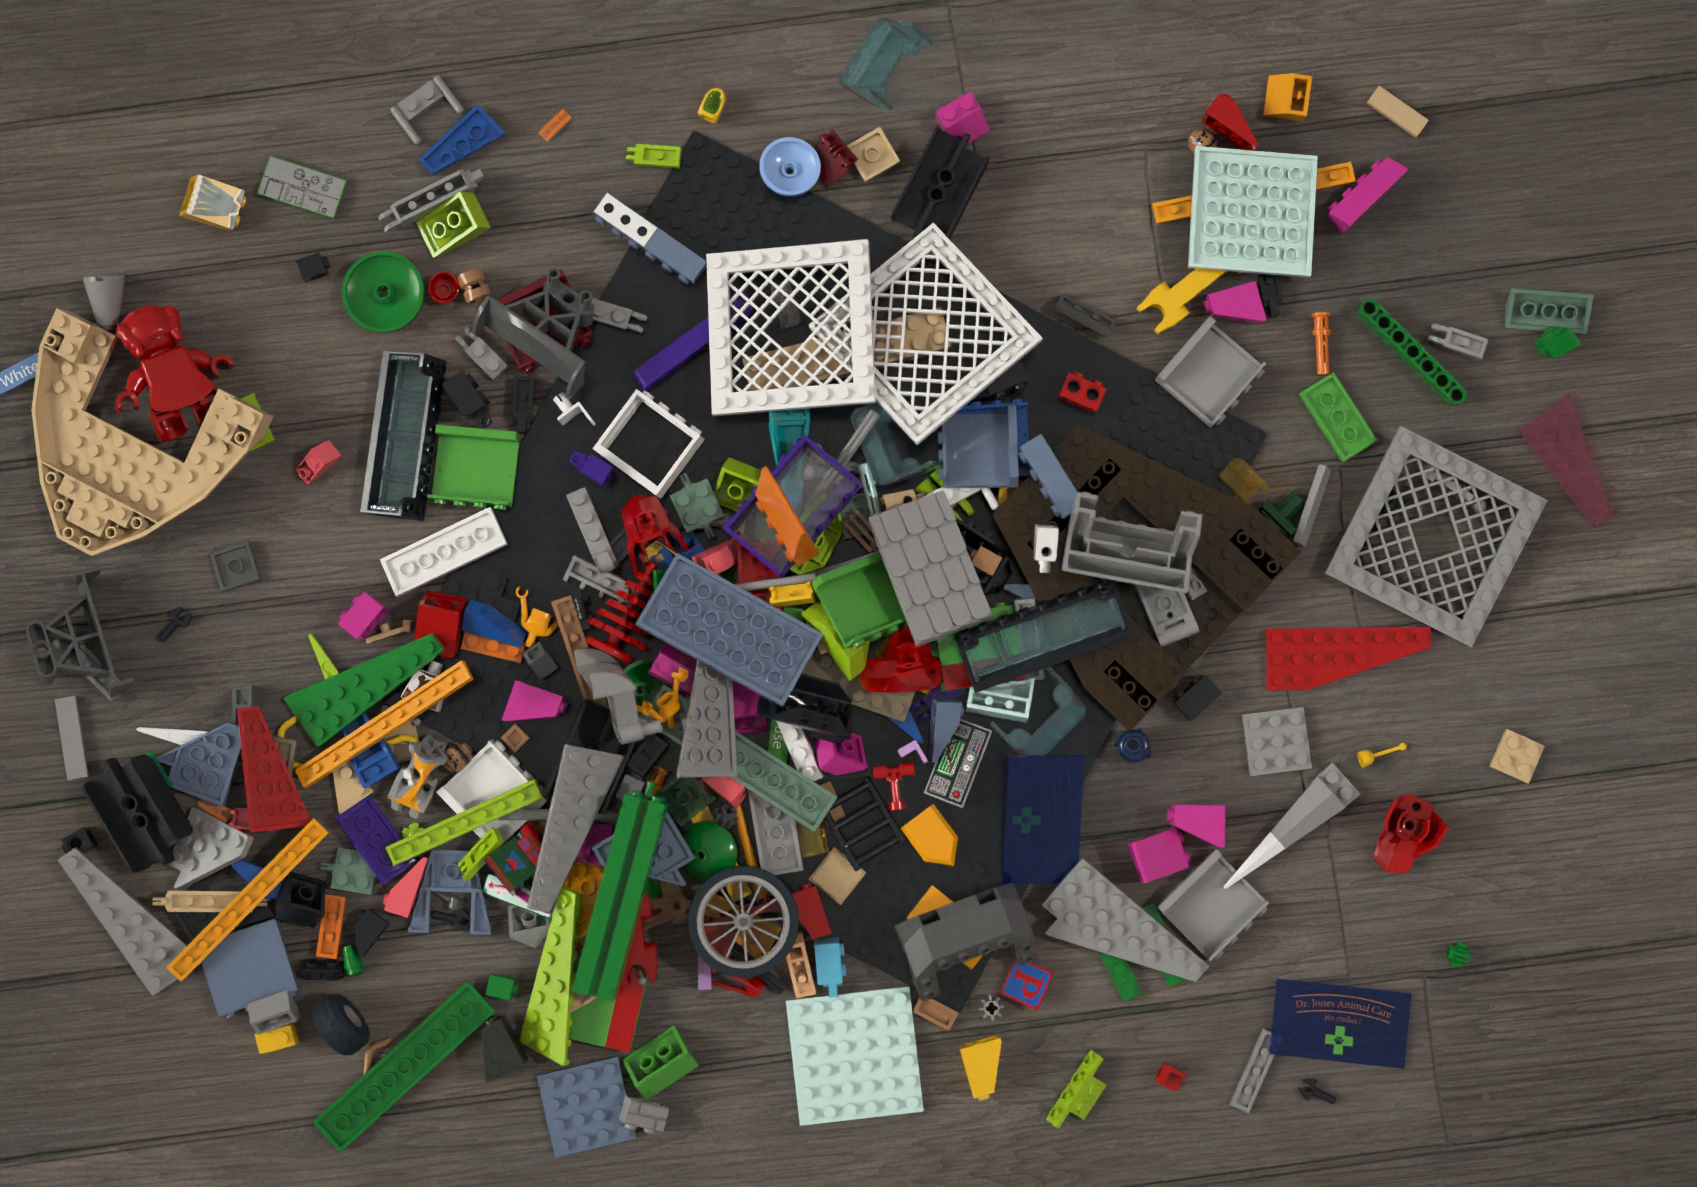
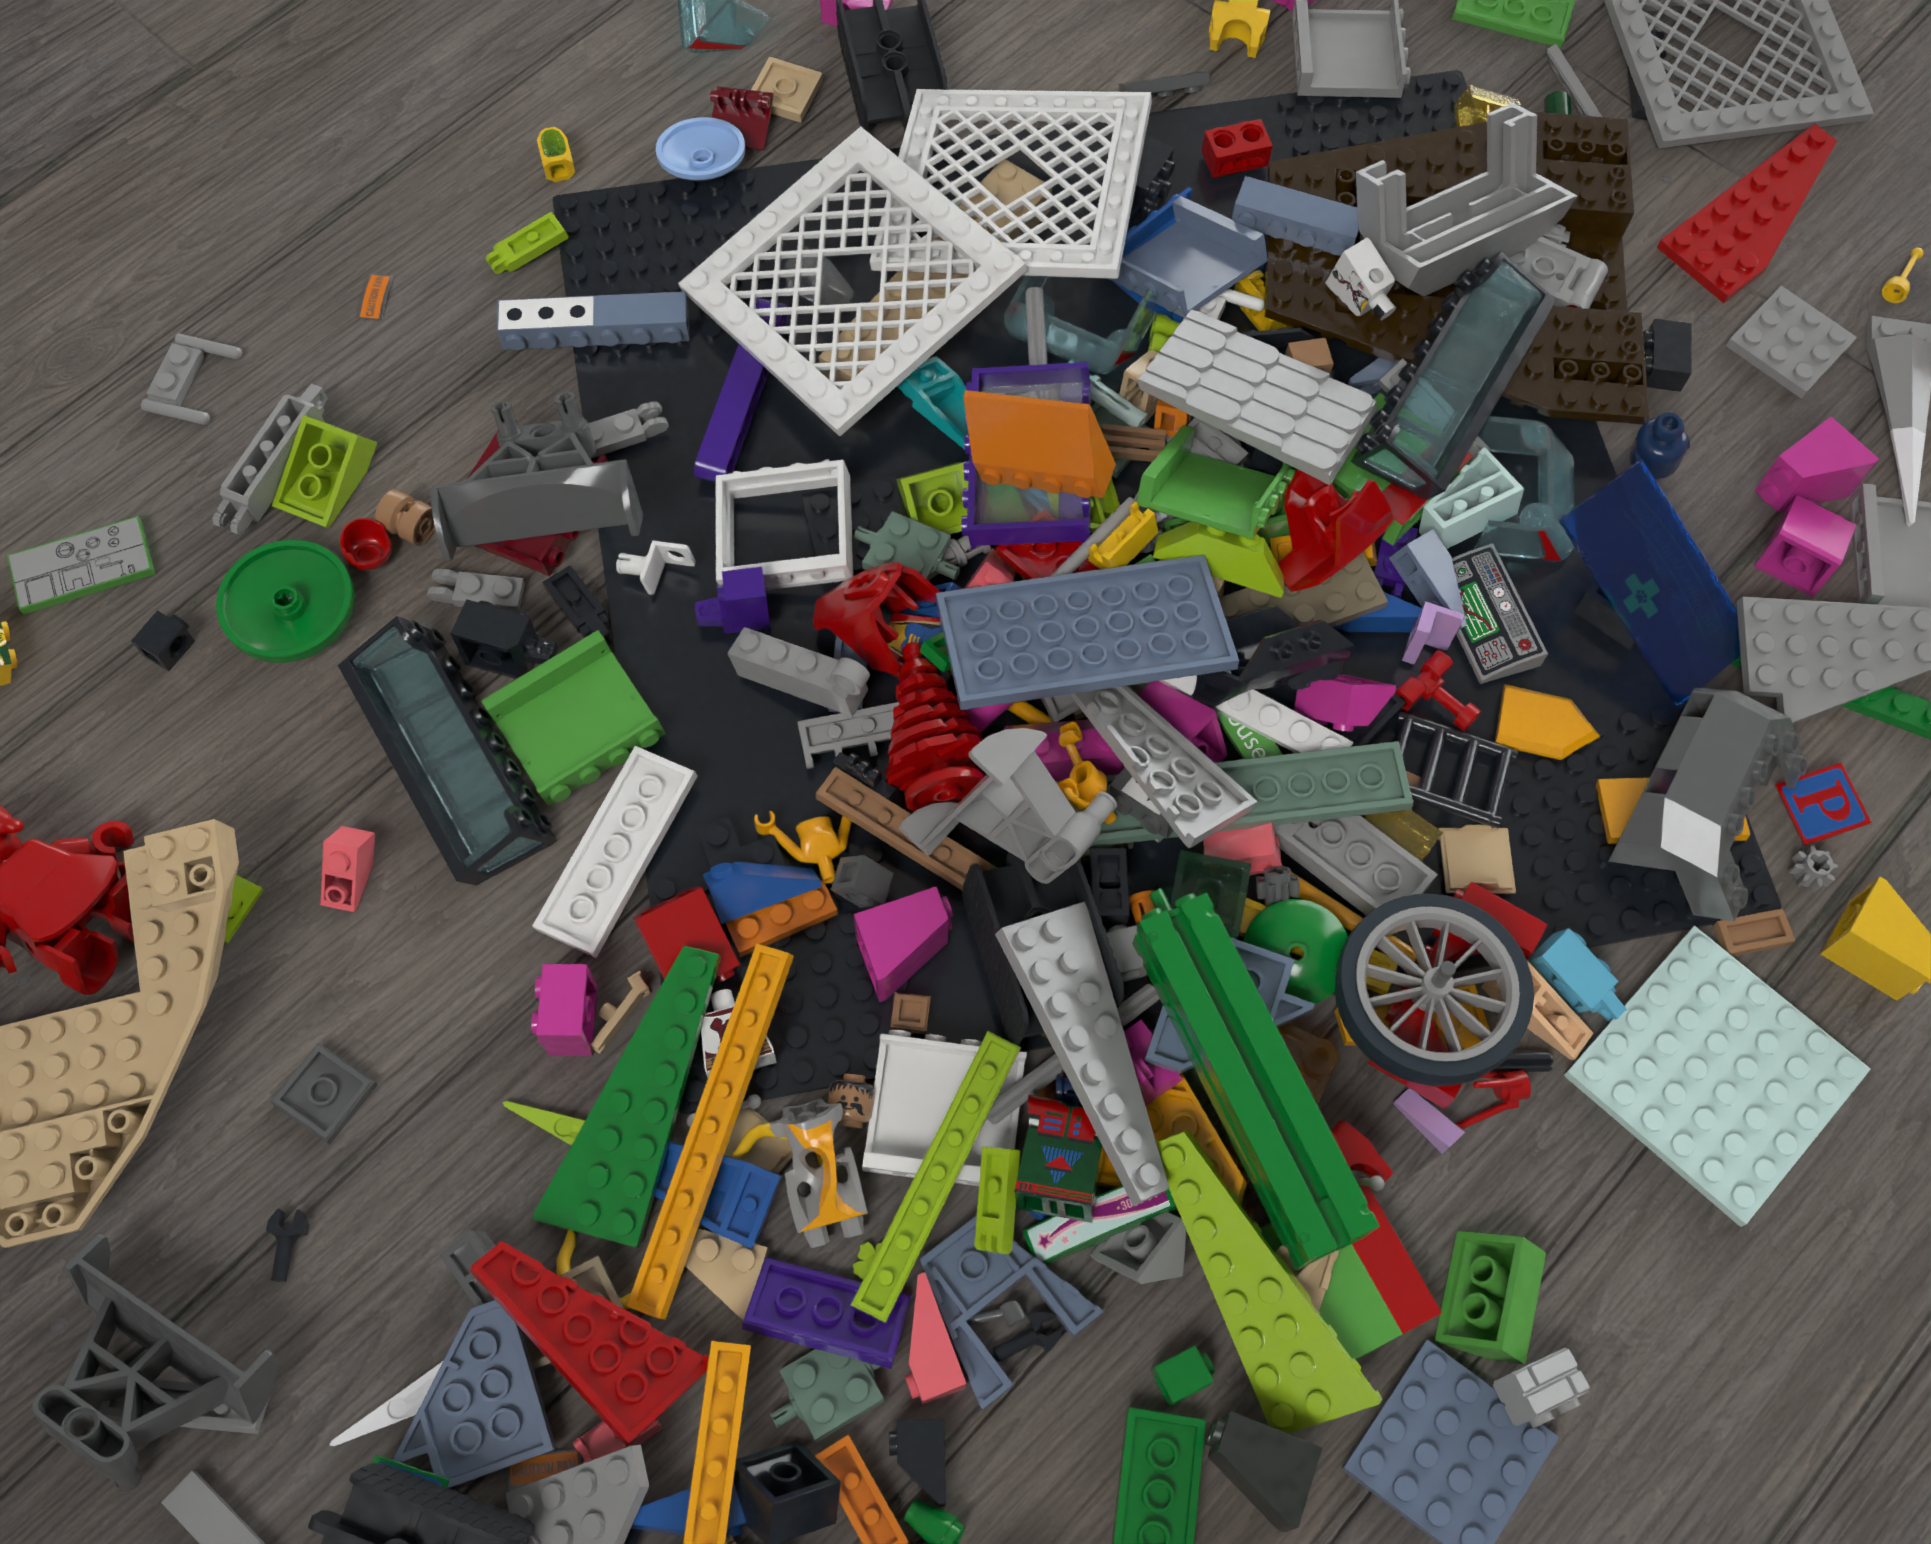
camera: 45 degrees left, 20 degrees down
(463, 139) = (264, 378): blue wing -> none

